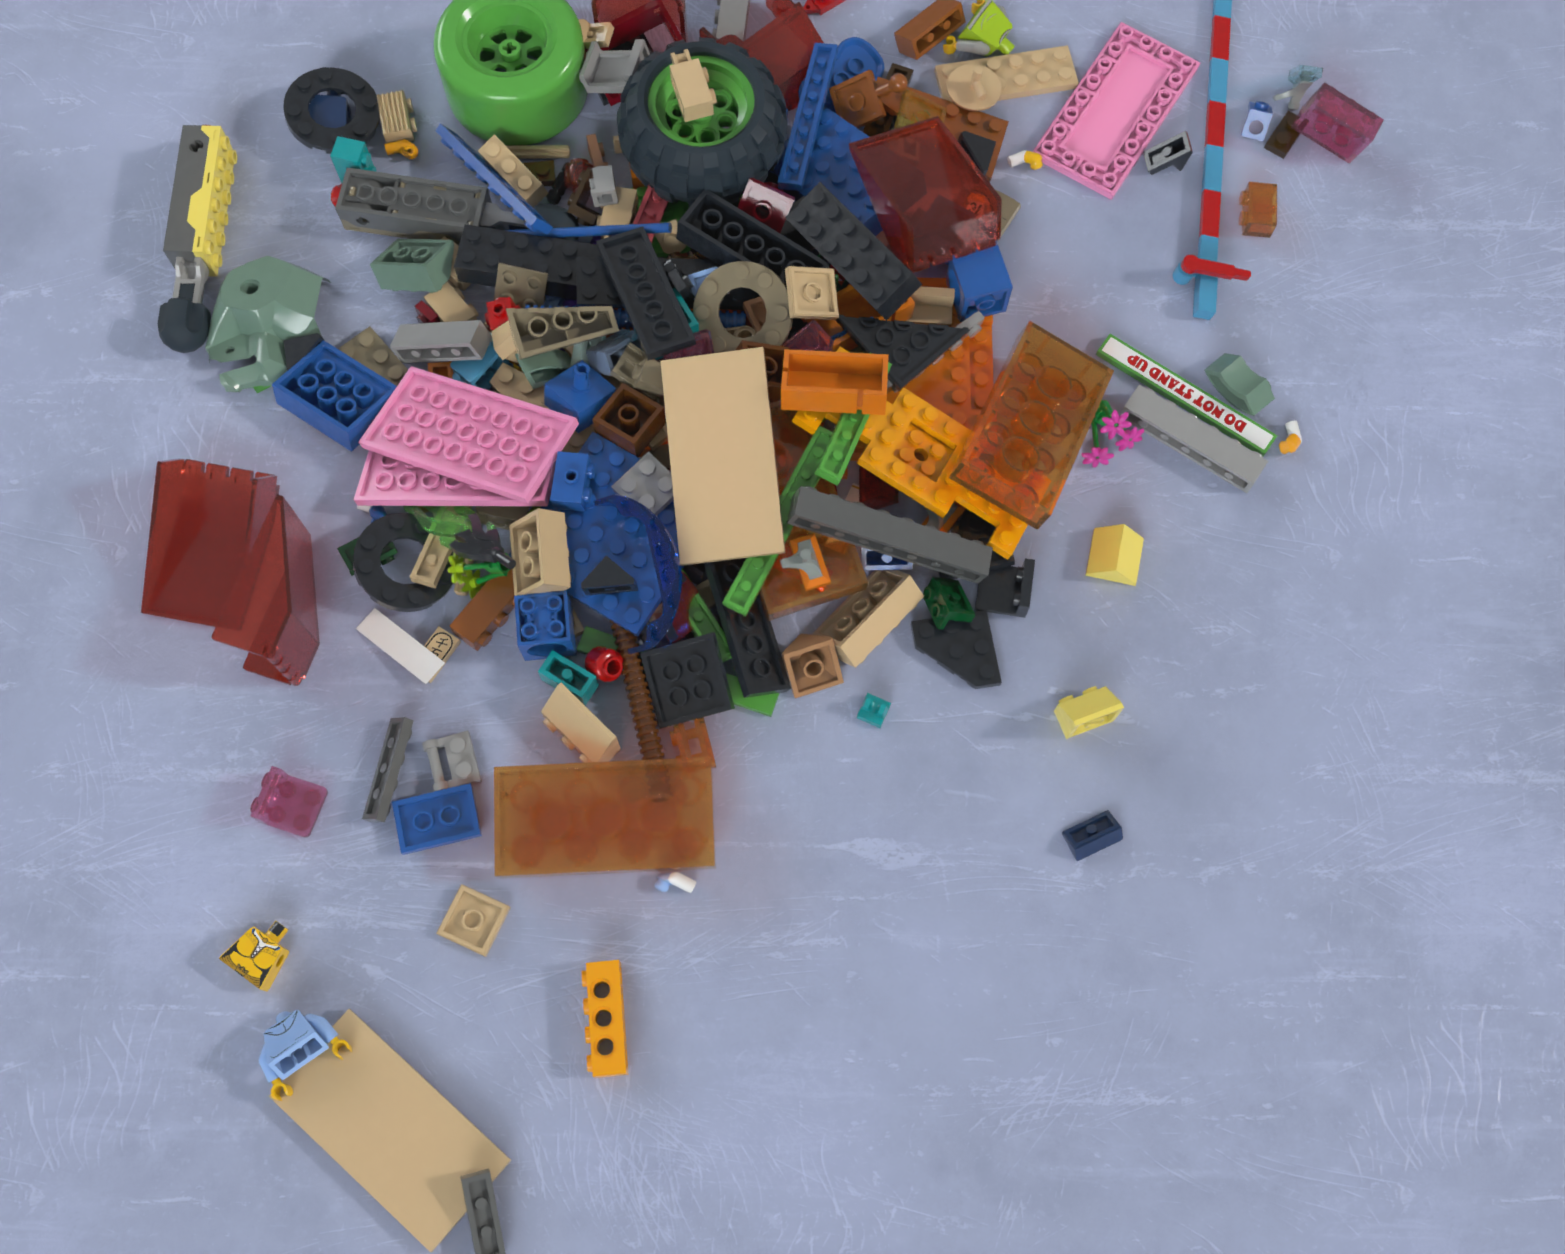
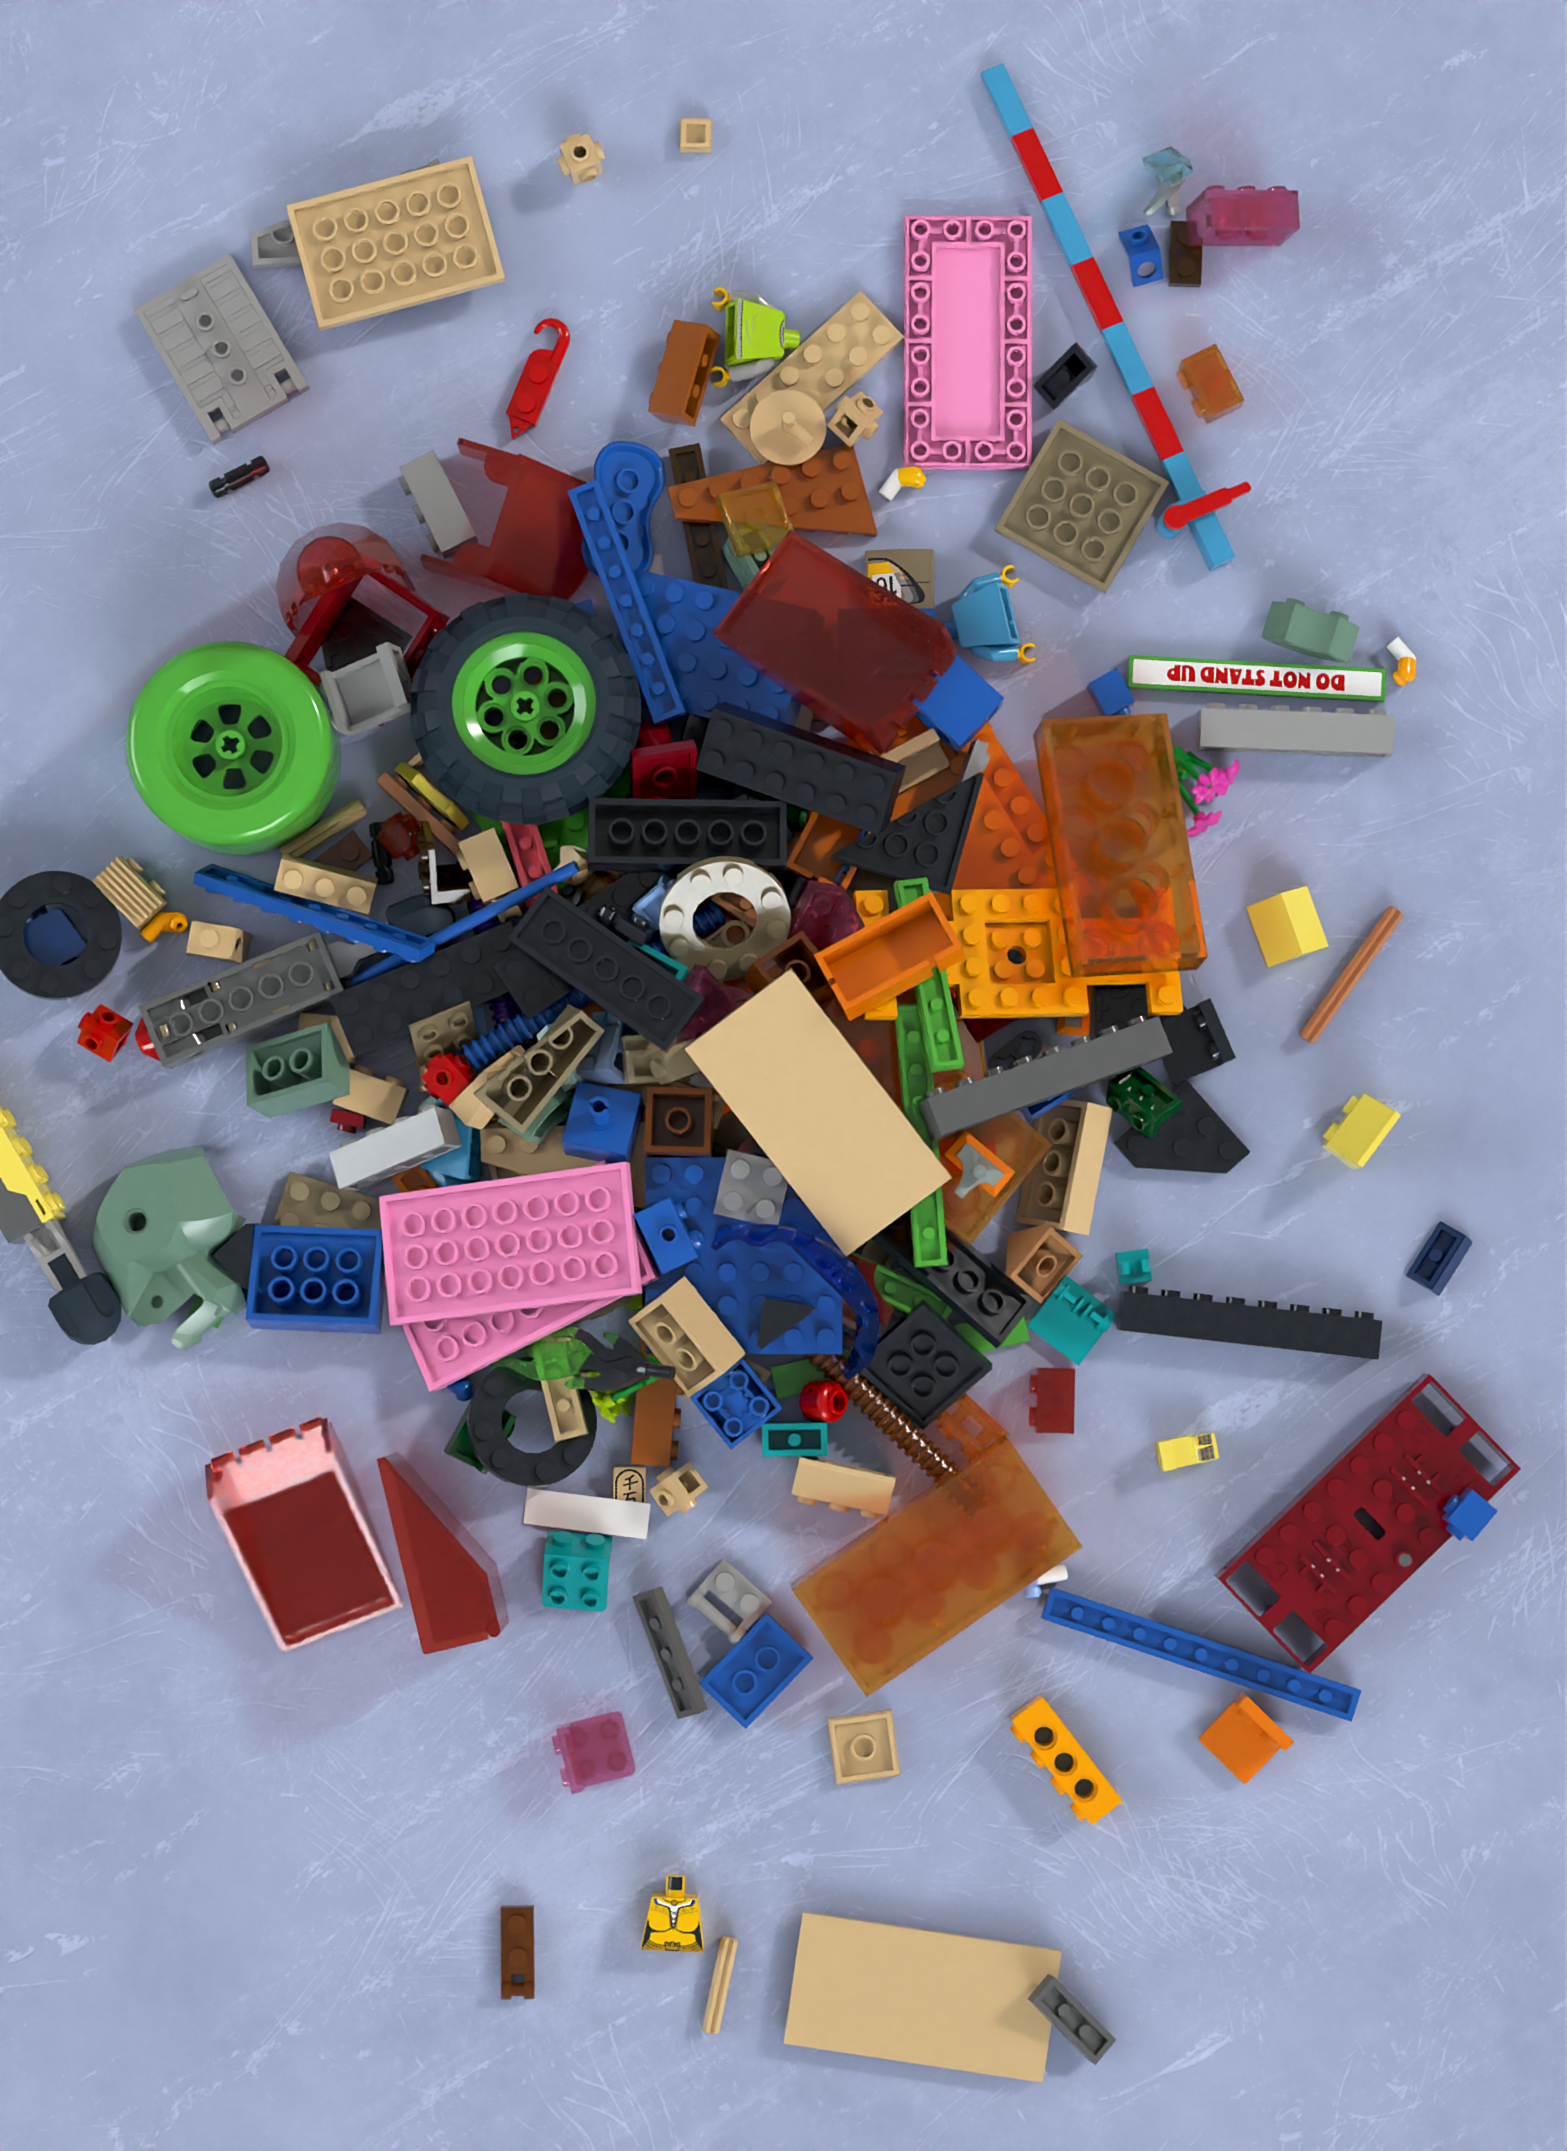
camera: 30 degrees left, 15 degrees up
(139, 910) = (517, 1951): none -> reddish brown plate
(256, 1025) = (720, 1985): none -> tan axle
(293, 1044) = (776, 1981): light blue torso -> none
(318, 181) = (104, 1032): none -> red brick
(350, 154) = (130, 986): teal brick -> none
(364, 677) = (576, 1571): none -> teal bracket
(421, 164) = (218, 942): none -> tan torso
(469, 663) = (678, 1489): none -> tan brick
(597, 32) = (308, 649): tan plate -> none
(603, 186) = (457, 852): light grey brick -> none
(612, 158) = (432, 796): none -> light yellow tile
(691, 86) = (509, 701): tan brick -> none
(744, 1087) = (1244, 1738): none -> orange bracket
(754, 1007) = (1201, 1654): none -> blue plate
(760, 764) = (1053, 1400): none -> clear red bracket
(808, 719) = (1072, 1320): none -> teal hinge
(811, 293) = (791, 854): tan tile -> none
(832, 855) = (1186, 1450): none -> light yellow leg
(860, 99) = (667, 534): dark orange plate -> none
(930, 795) = (1249, 1325): none -> black brick
(977, 972) = (1325, 1557): none -> dark red piece
(978, 149) = (847, 519): black slope -> none
(1008, 1015) = (1467, 1515): none -> blue brick
(1019, 105) = (855, 418): none -> tan brick
(1029, 261) = (986, 619): none -> dark azure torso
(1084, 341) = (1111, 694): none -> blue brick
(1132, 233) = (1081, 506): none -> dark tan plate
(1141, 611) = (1351, 975): none -> nougat axle

